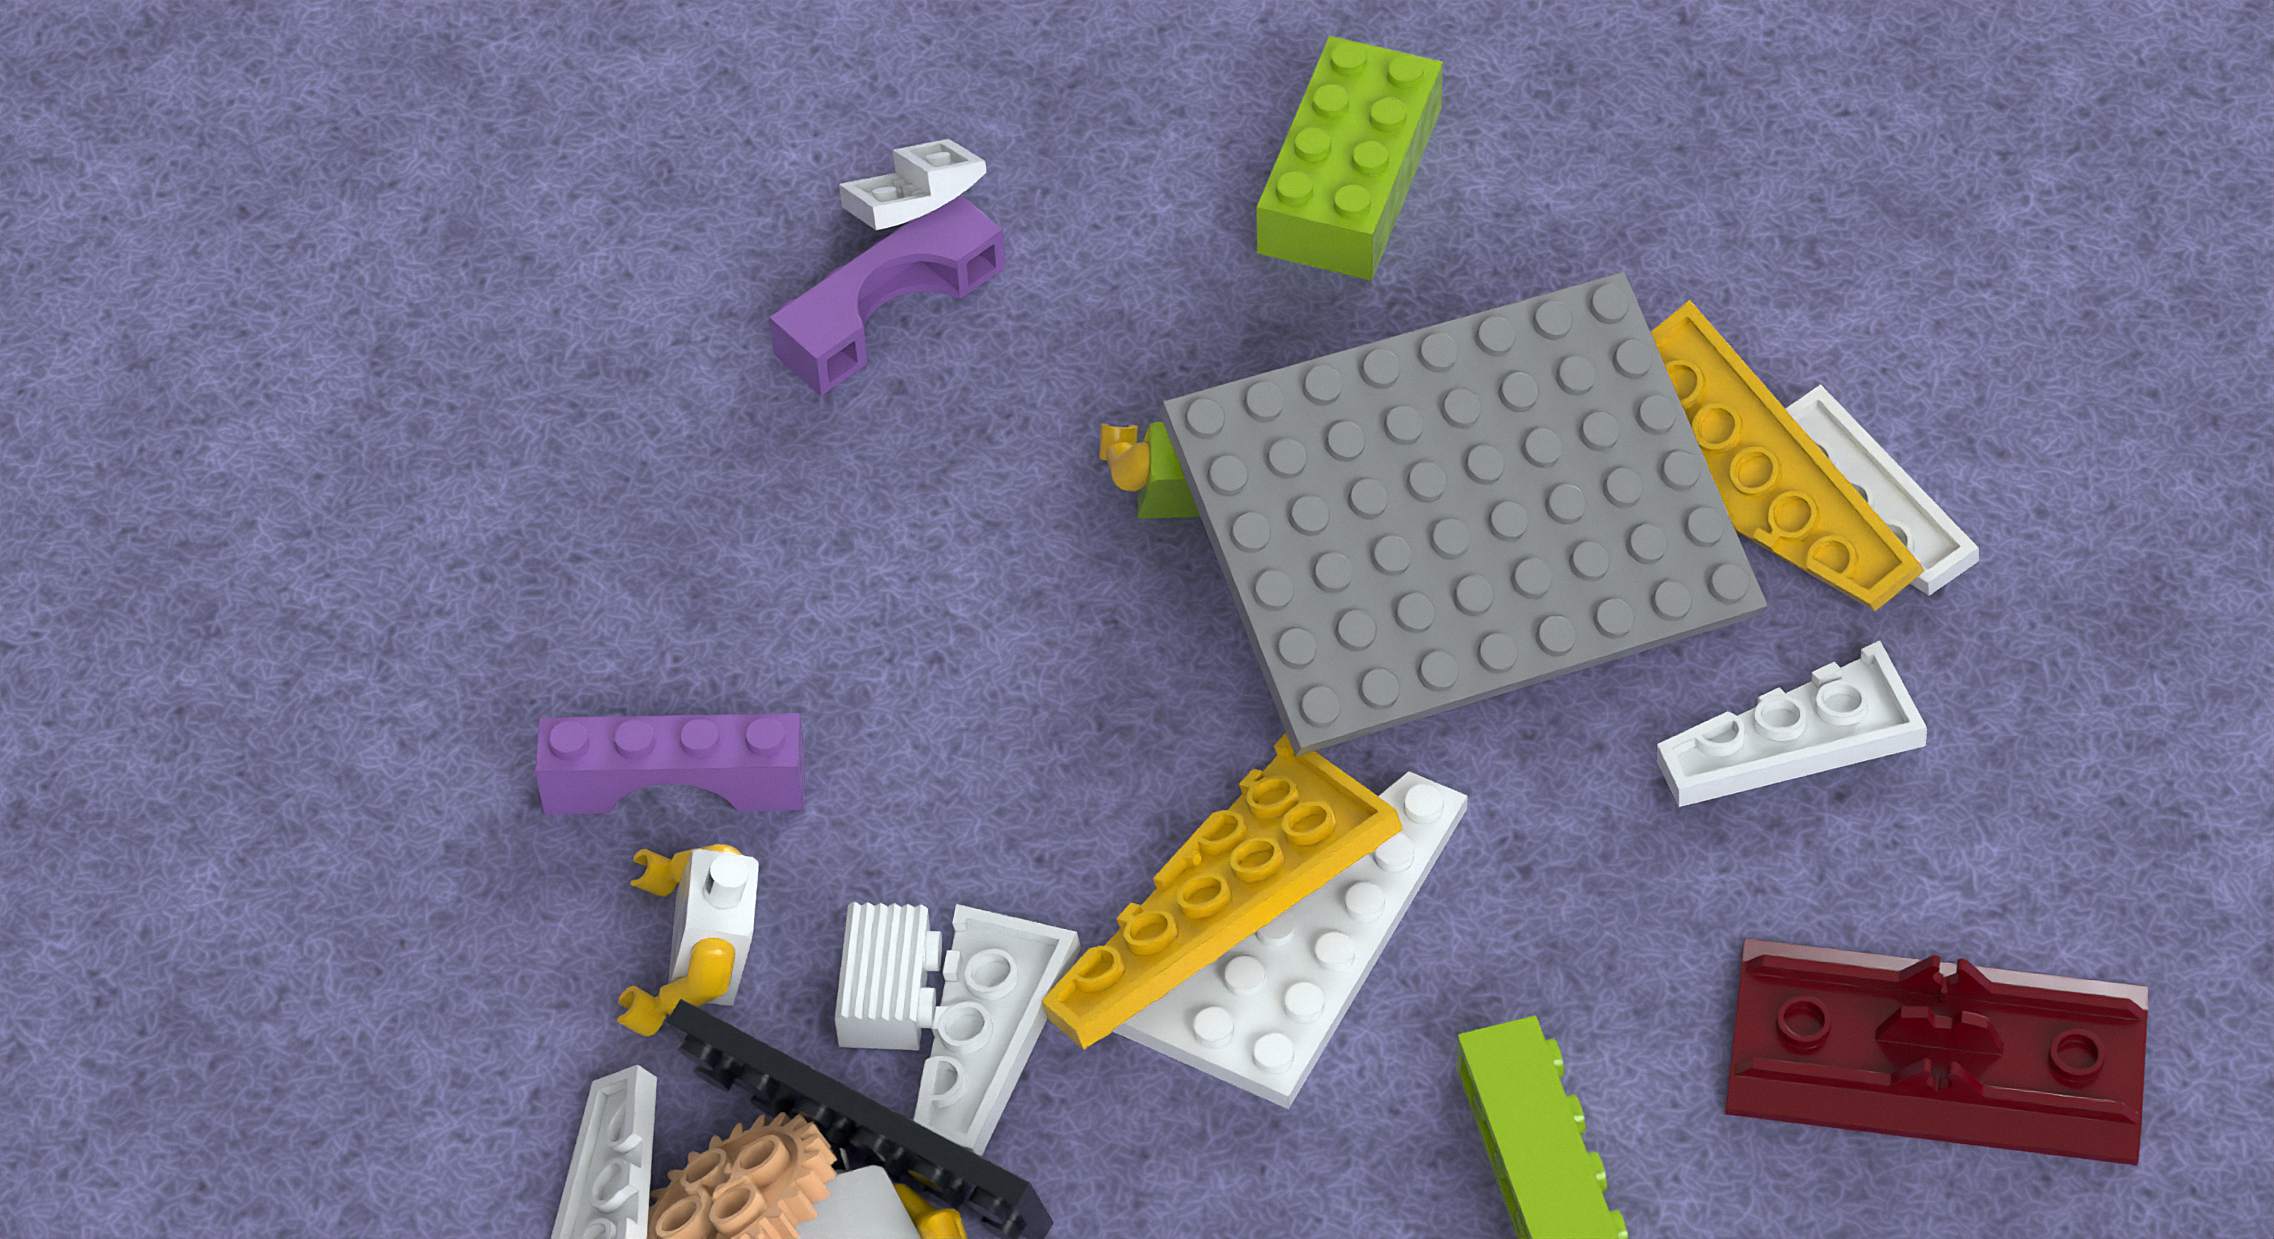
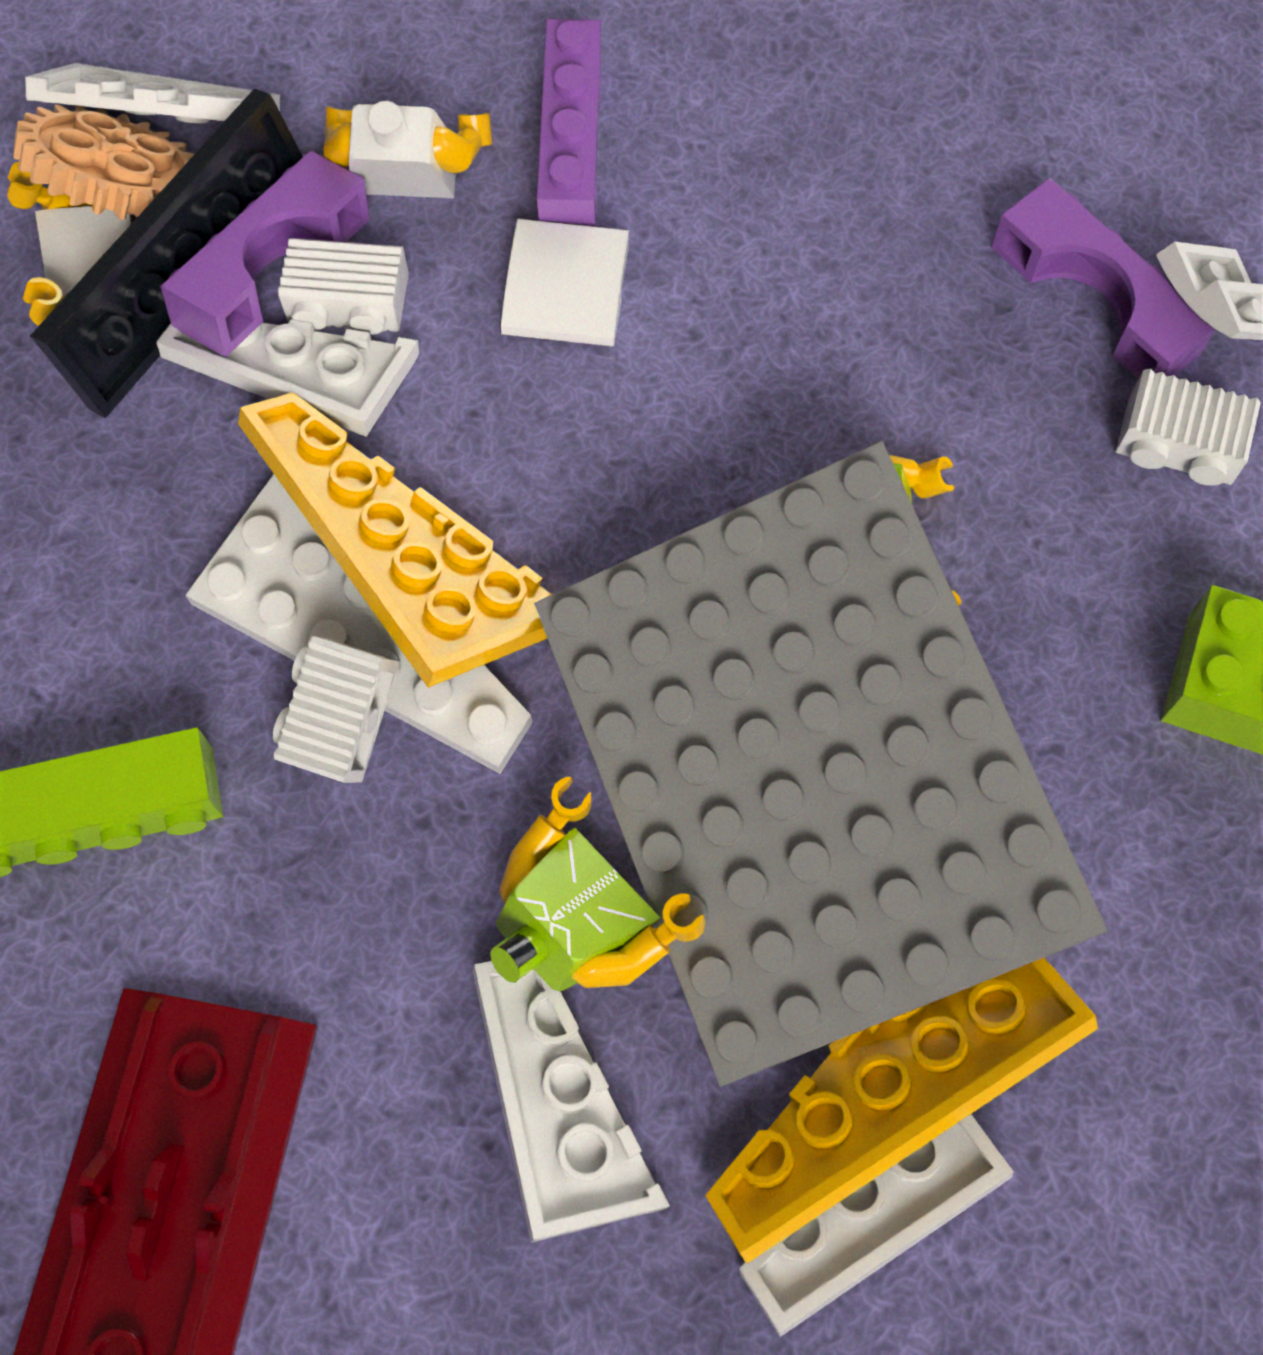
camera: 90 degrees right, 15 degrees up
(877, 768) = (565, 282): none -> white slope
(916, 1071) = (216, 291): none -> medium lavender arch
(1062, 233) = (1188, 428): none -> white brick
(1425, 920) = (334, 709): none -> white brick
(1619, 707) = (575, 912): none -> torso

